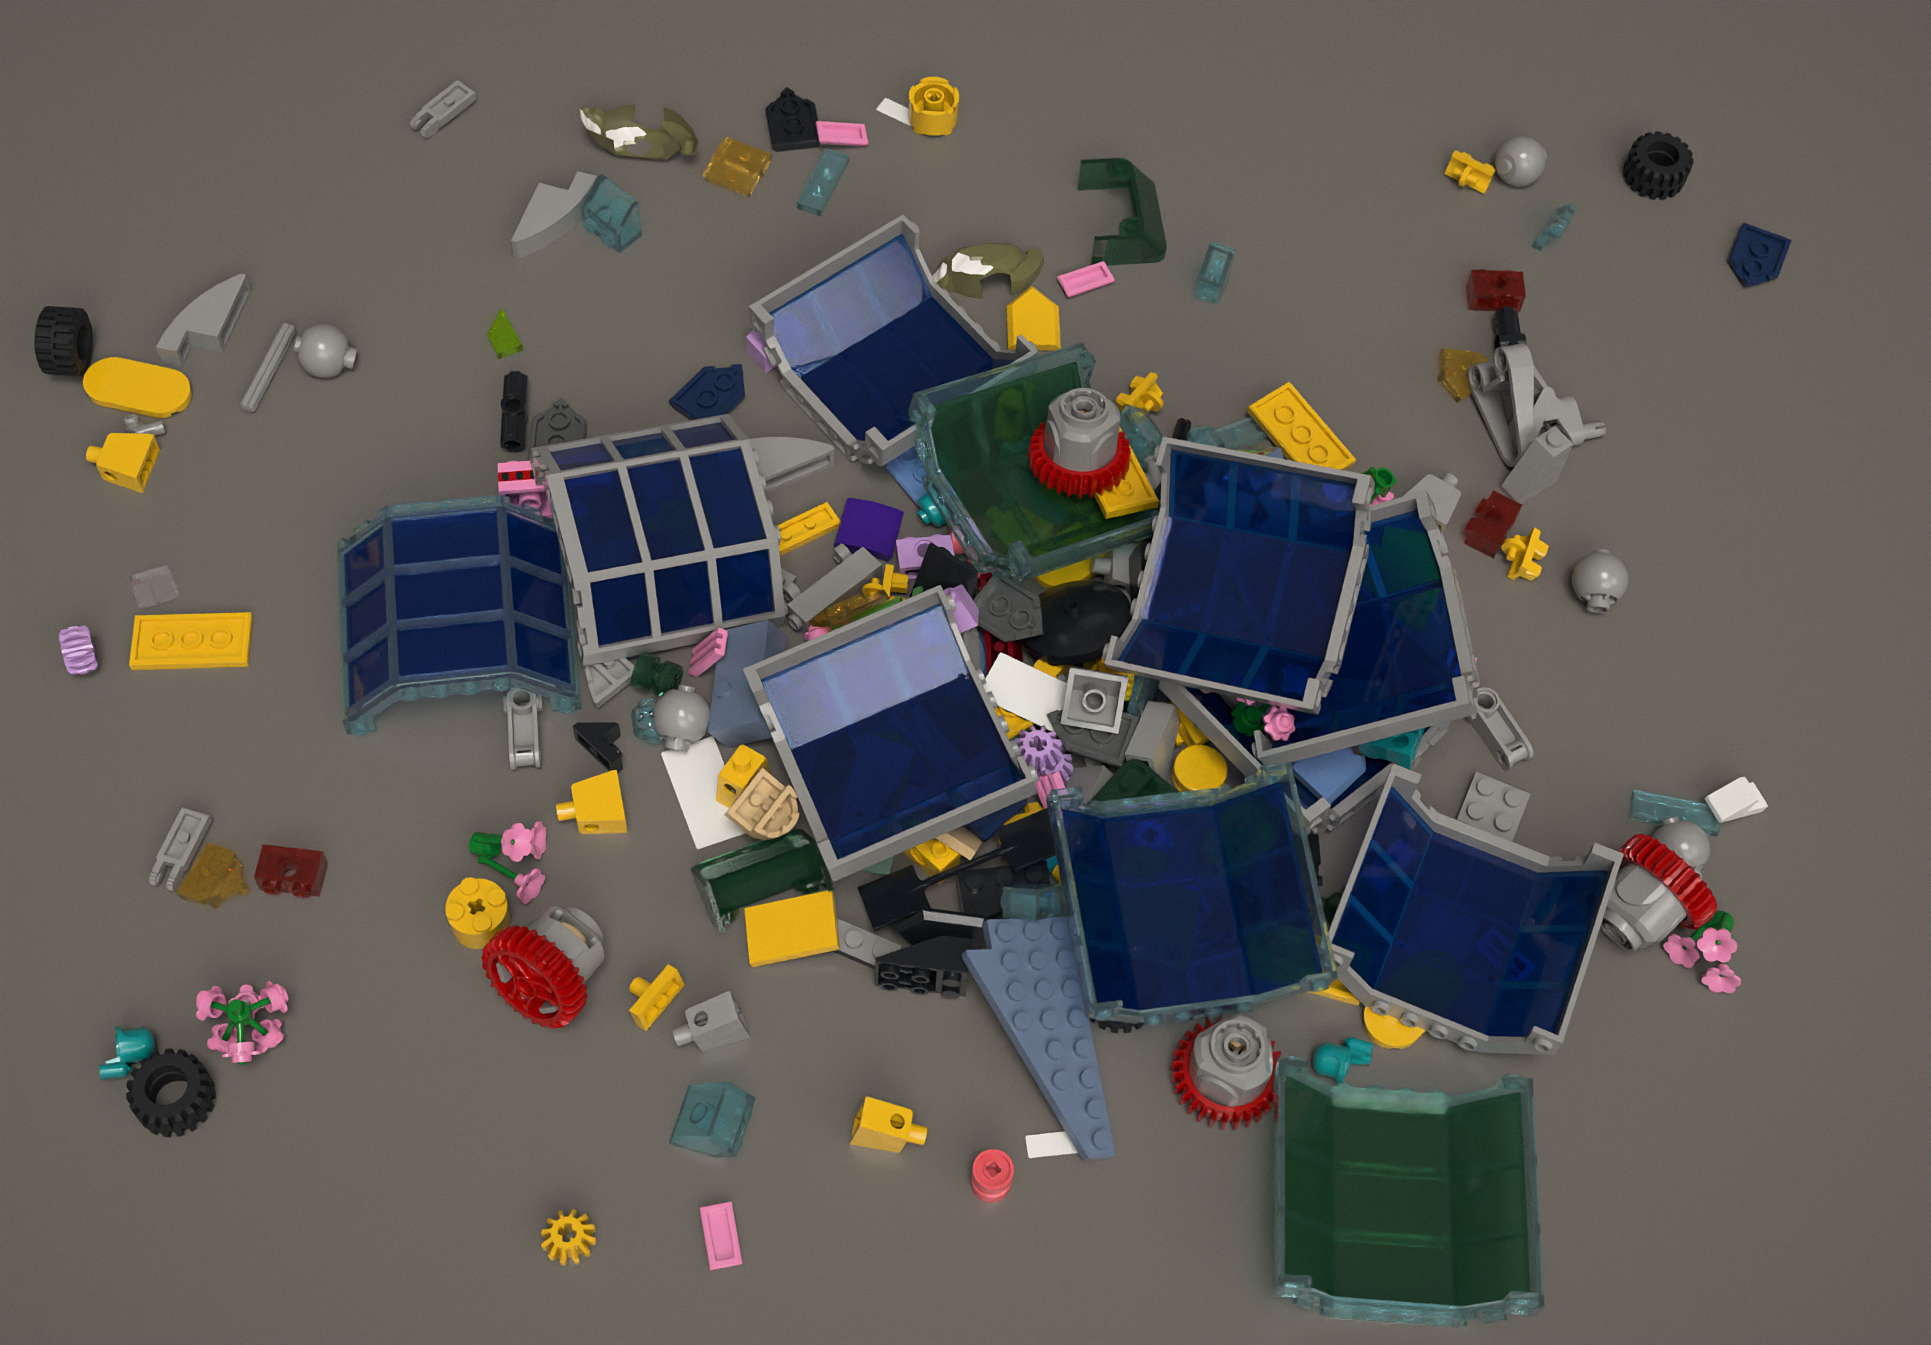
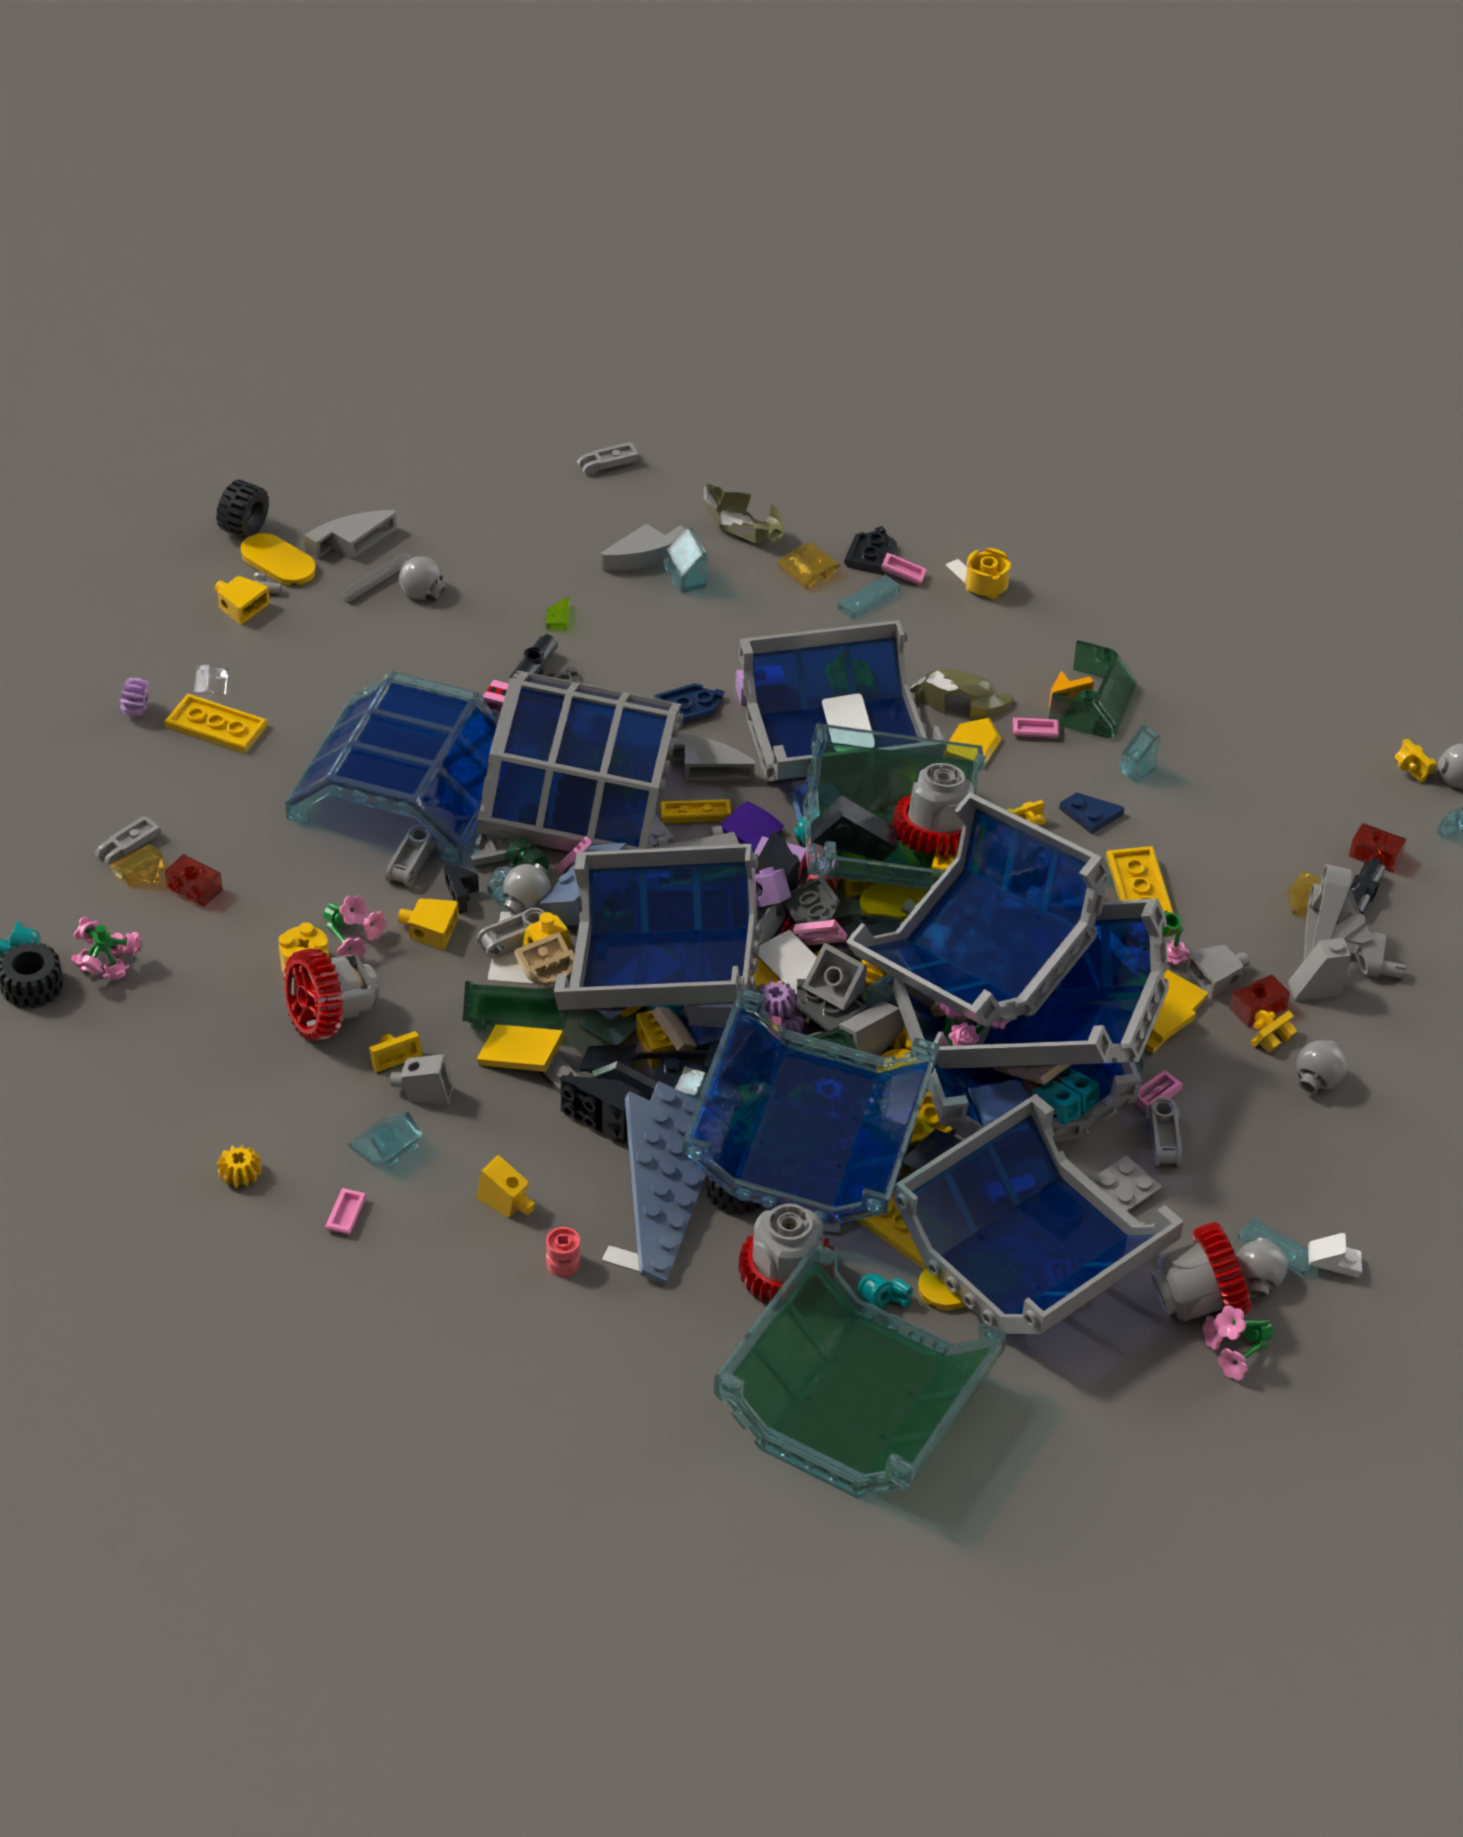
camera: 30 degrees right, 15 degrees down
(695, 779) = (507, 934): none -> light grey piece
(899, 355) = (846, 711): none -> white sticker
(1008, 504) = (854, 830): none -> black wedge
(1039, 645) = (820, 932): none -> bright pink tile
(1095, 222) = (1070, 688): none -> light orange slope
(1197, 361) = (1090, 812): none -> dark blue wing

